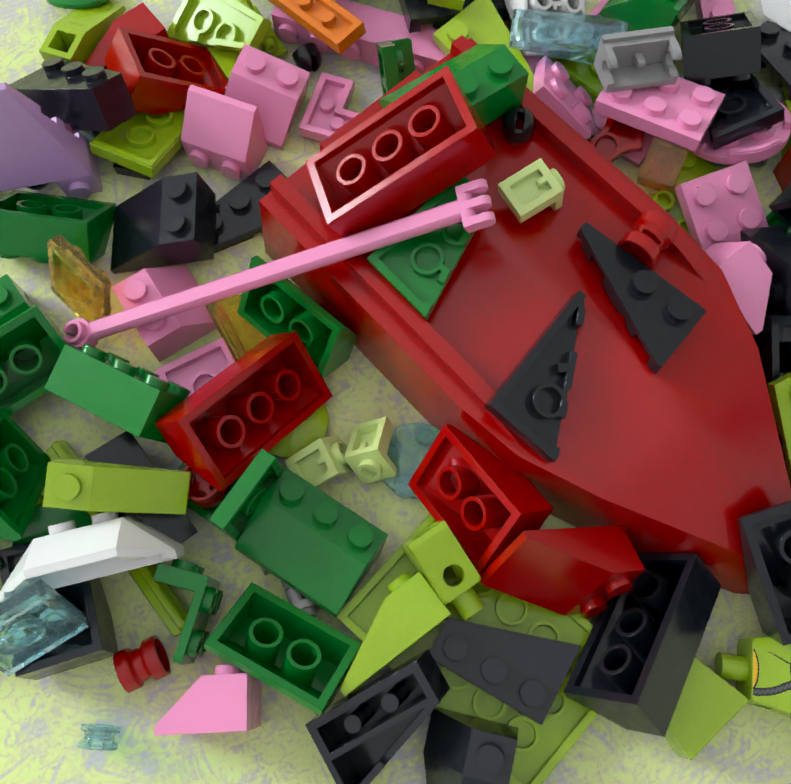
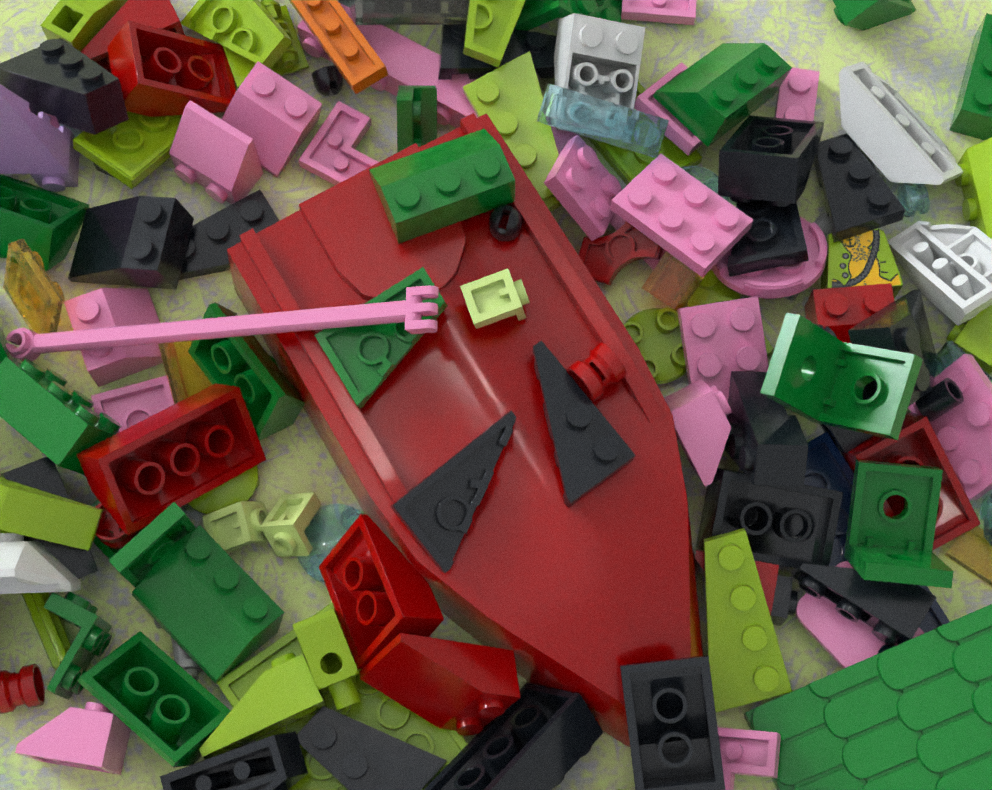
camera: 10 degrees right, 0 degrees up
(400, 156) = (364, 244): red slope -> none
(637, 59) = (663, 166): light grey hinge -> none

